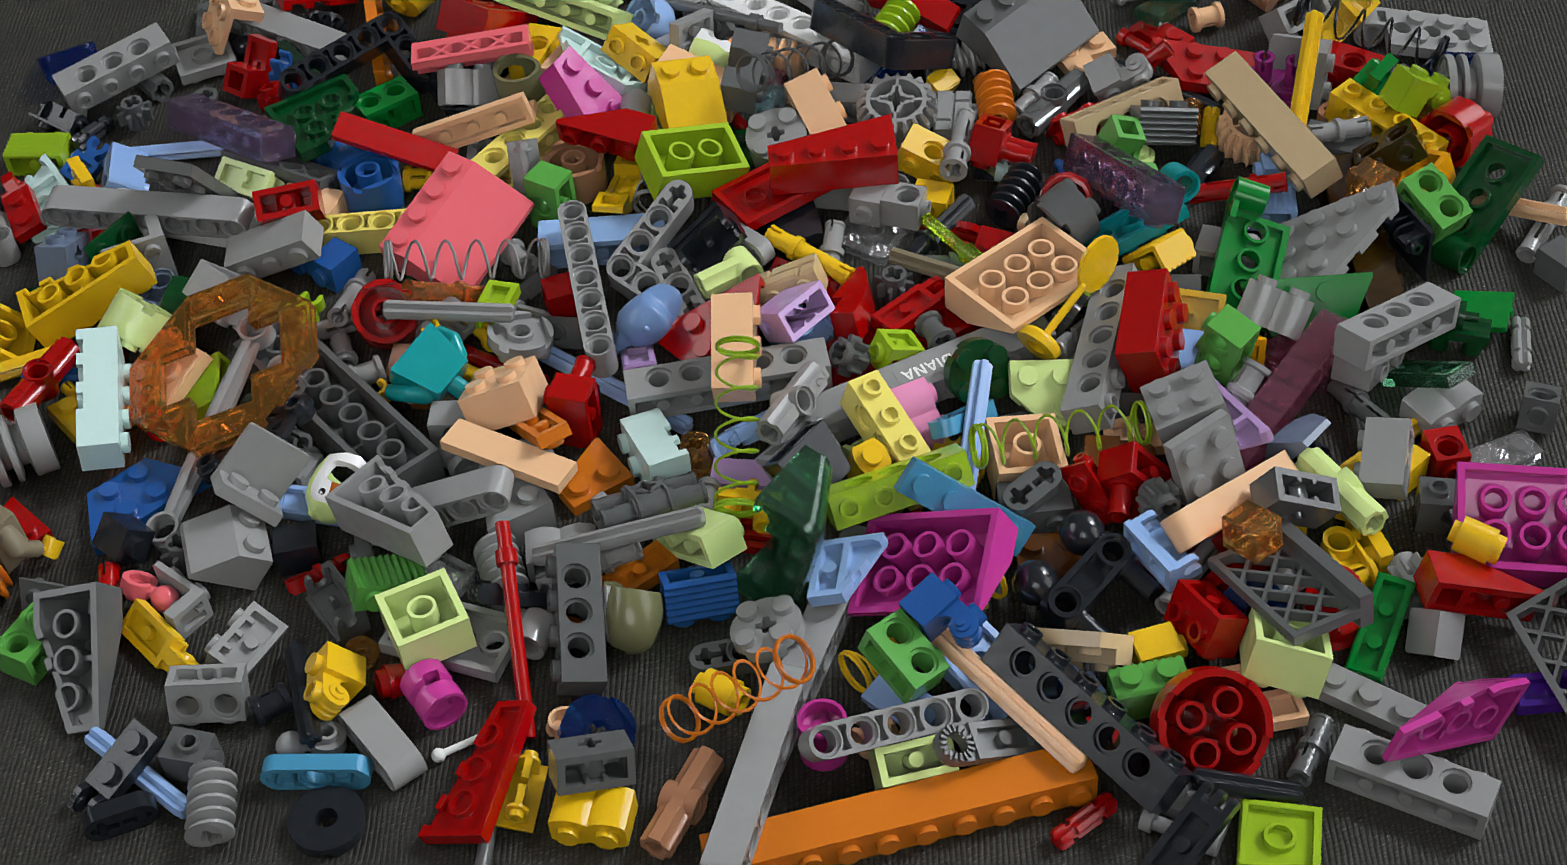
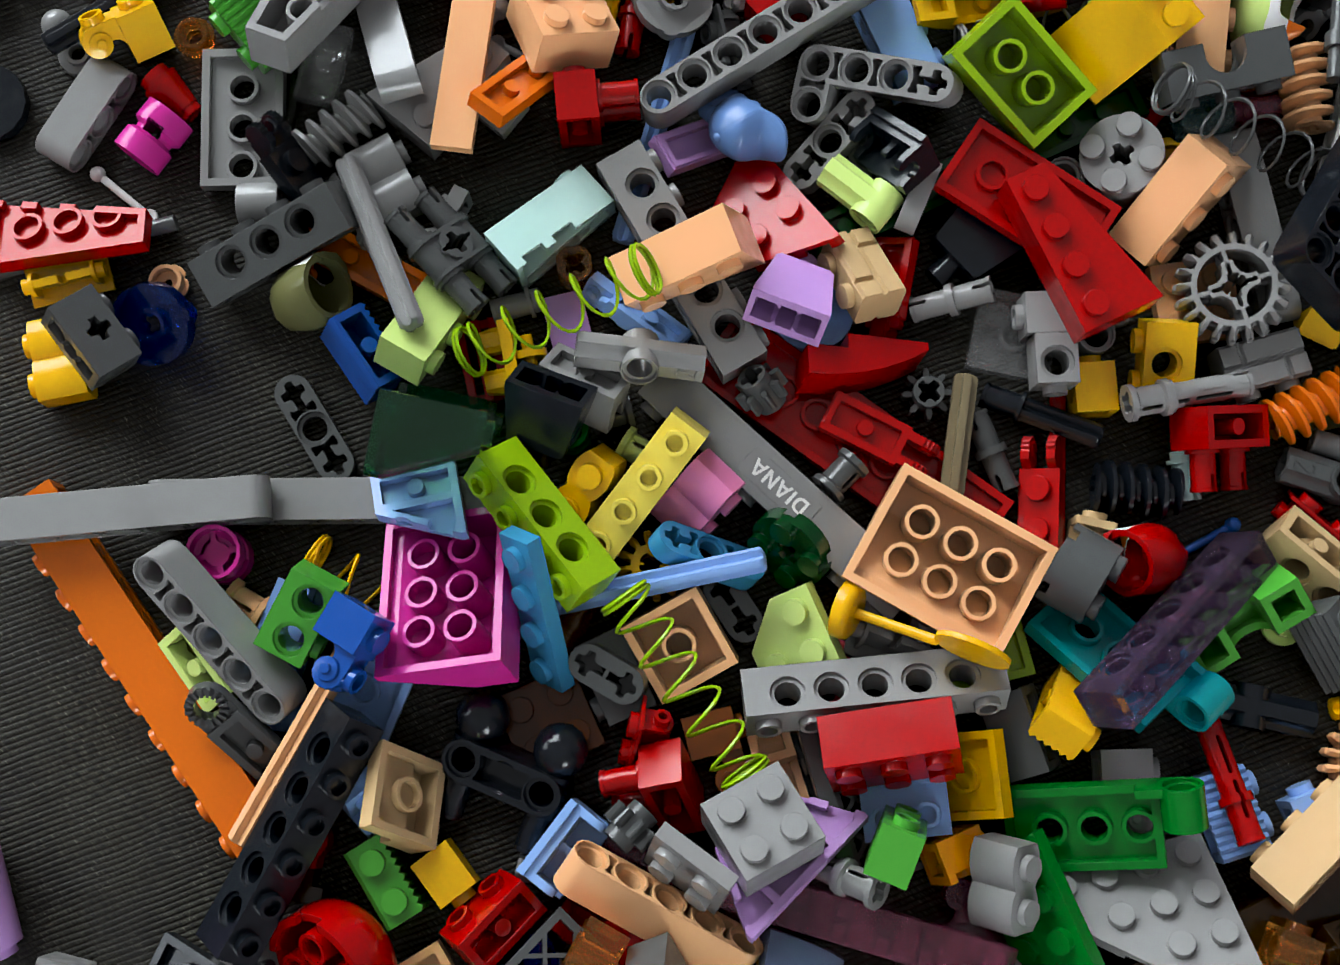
camera: 65 degrees right, 35 degrees up
(298, 773) = (32, 64): dark azure beam -> none
(426, 619) = (213, 87): yellowish green brick -> none
(506, 560) = (290, 139): red bar -> none
(596, 472) = (512, 167): orange wing -> none
(682, 803) = (103, 442): nougat piece -> none
(724, 690) = (251, 426): yellow brick -> none
(756, 616) = (318, 427): light grey plate -> none
(780, 668) = (210, 380): orange piece -> none
(797, 248) = (922, 277): yellow pin -> none
(893, 345) = (797, 437): lime bracket -> none
(966, 252) = (995, 469): clear neon green pin -> none
(1083, 821) = (201, 852): red axle -> none

